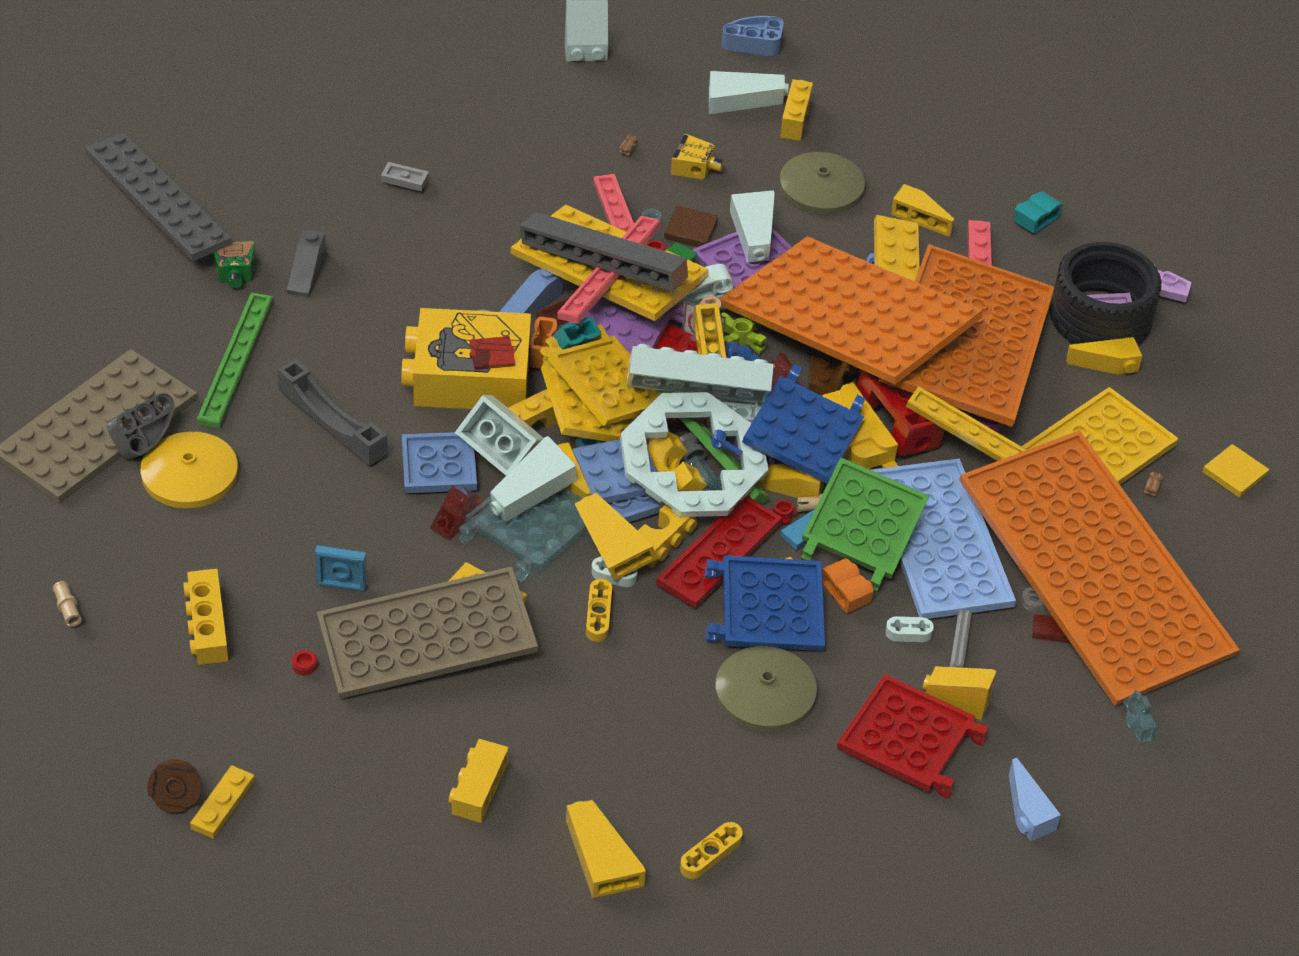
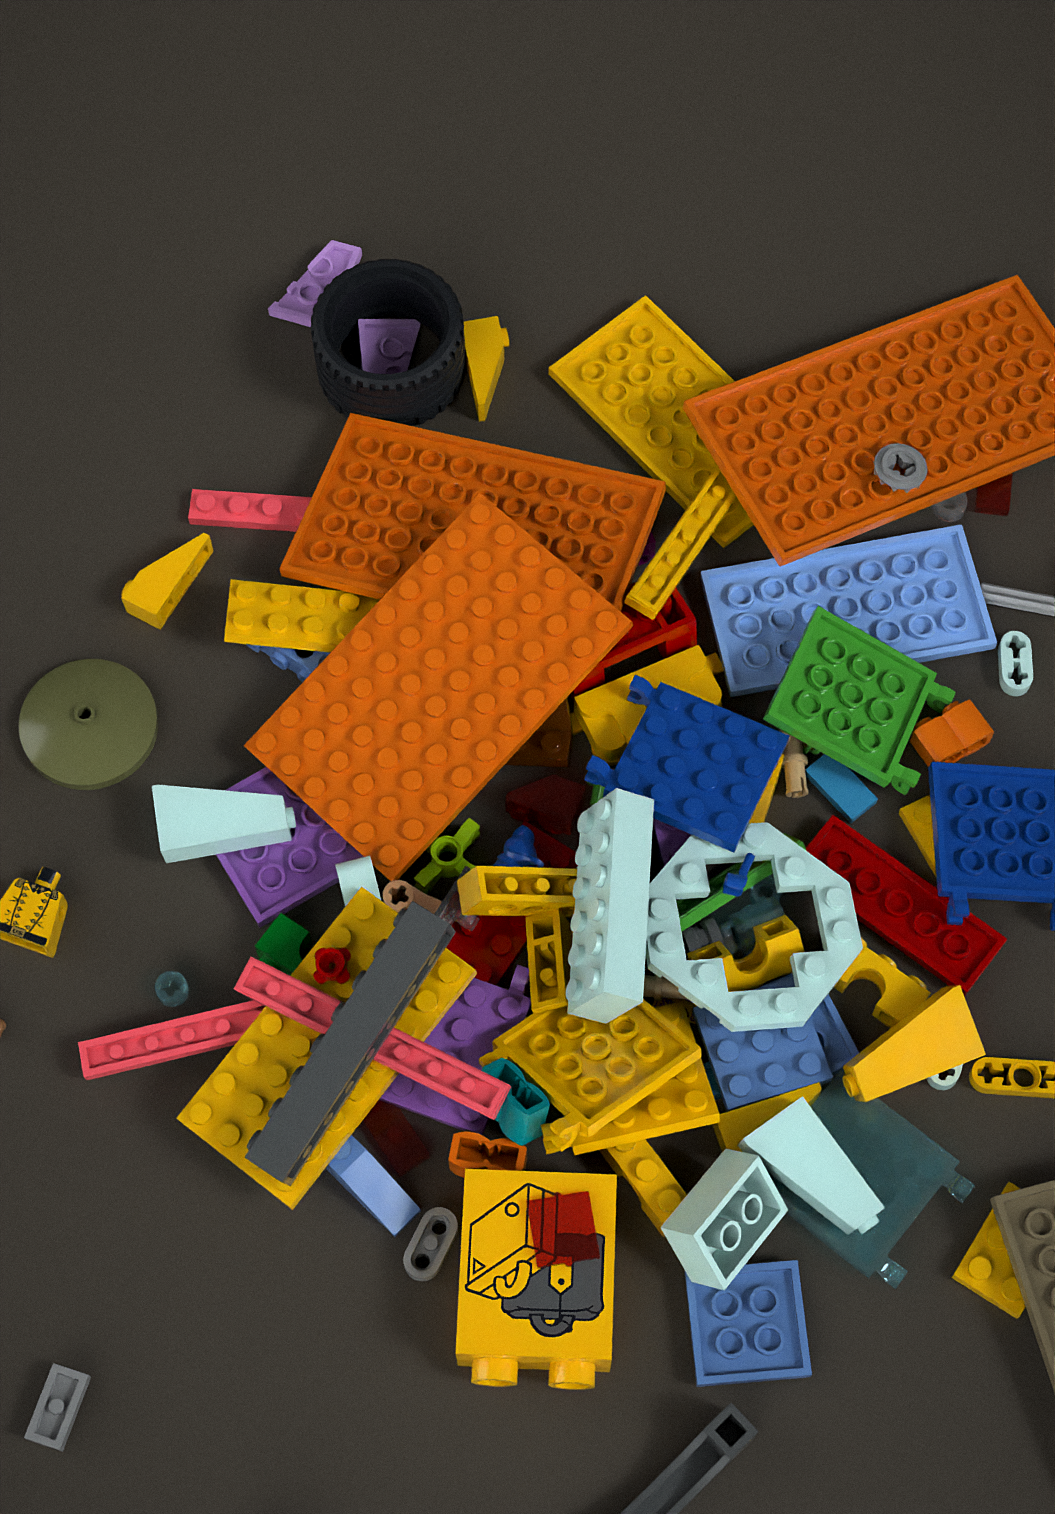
camera: 85 degrees left, 20 degrees up
(341, 568) = (1009, 1465): dark azure tile -> none
(453, 511) = (856, 1290): clear red slope -> none
(690, 226) = (190, 927): reddish brown tile -> none
(784, 509) = (815, 807): red plate -> none
(1037, 212) = (174, 421): teal brick -> none
(1050, 540) = (908, 459): none -> light grey gear
(1153, 484) = (727, 340): medium nougat piece -> none
(1235, 470) = (690, 239): yellow tile -> none

